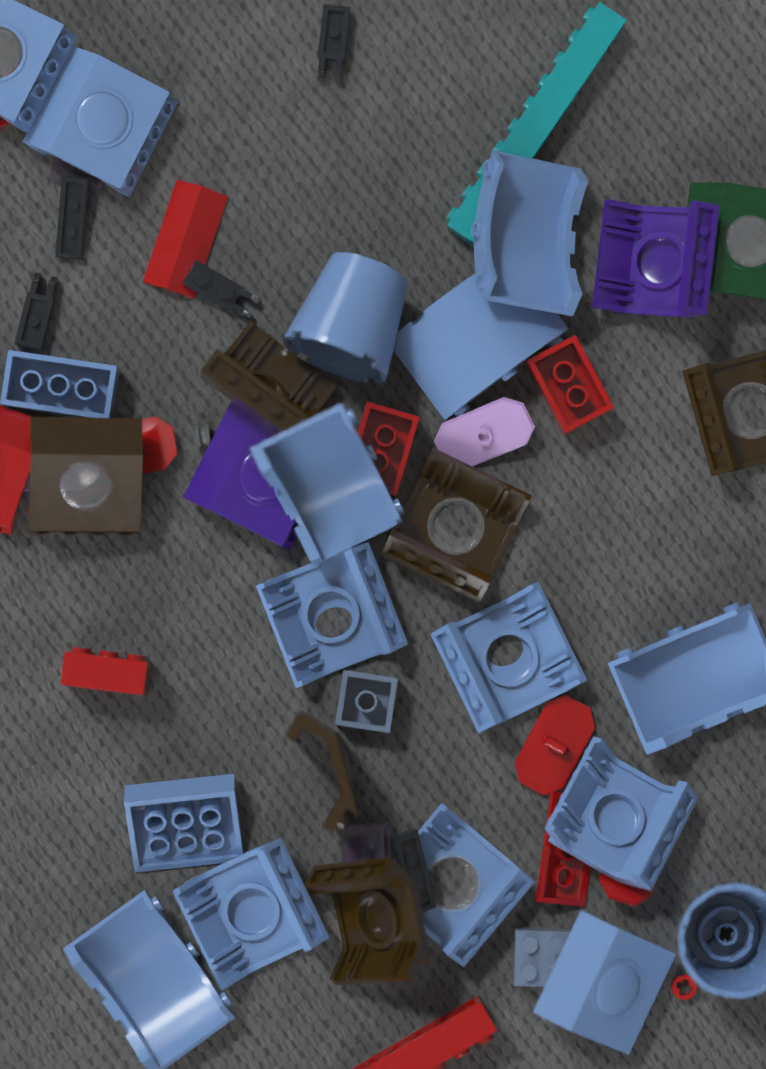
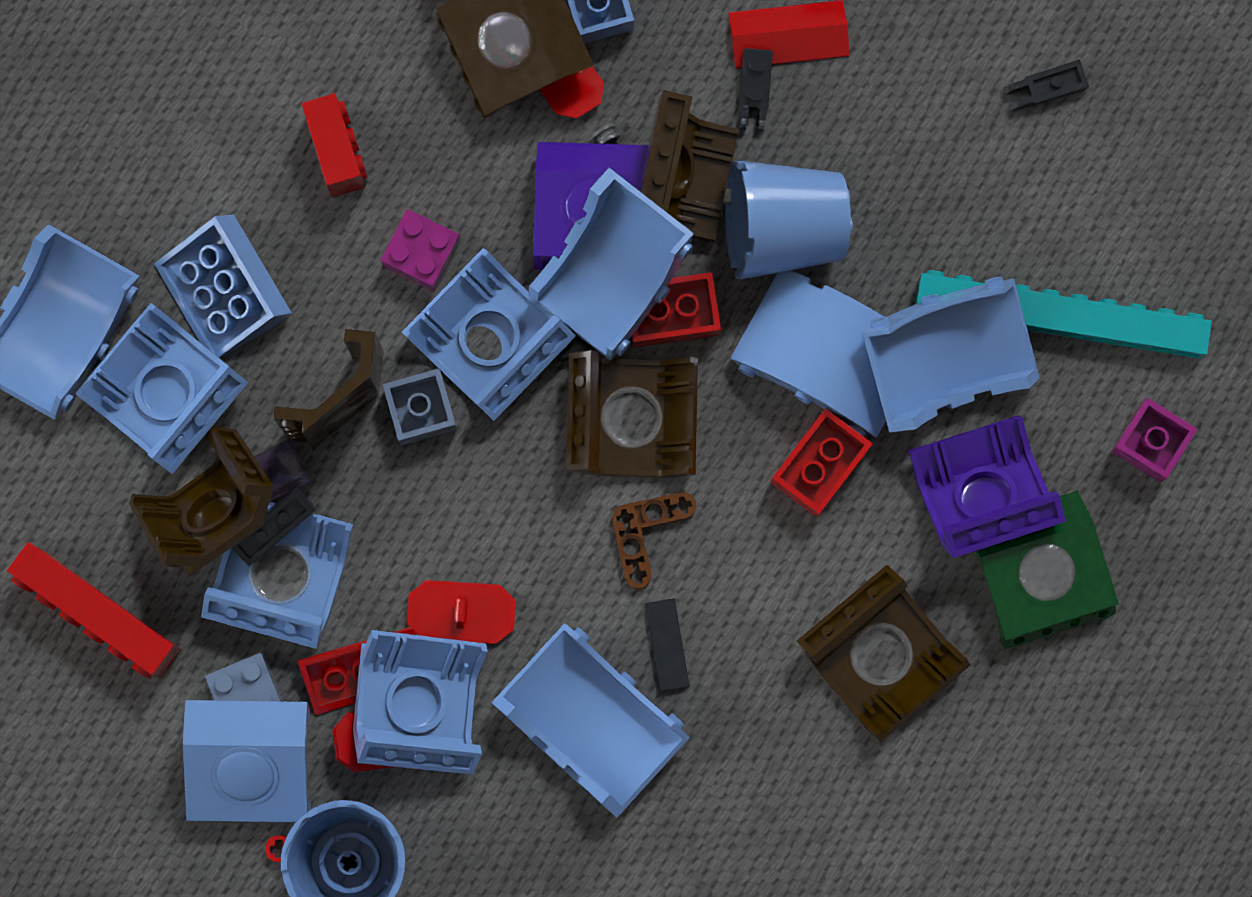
camera: 65 degrees right, 5 degrees down
(230, 639) = (420, 250): none -> magenta brick
(486, 432) = (736, 403): lavender shield -> none
(502, 692) = (486, 530): medium blue panel -> none
(547, 558) = (641, 521): none -> reddish brown beam
(660, 584) = (667, 644): none -> black tile
(677, 98) = (1154, 440): none -> magenta brick

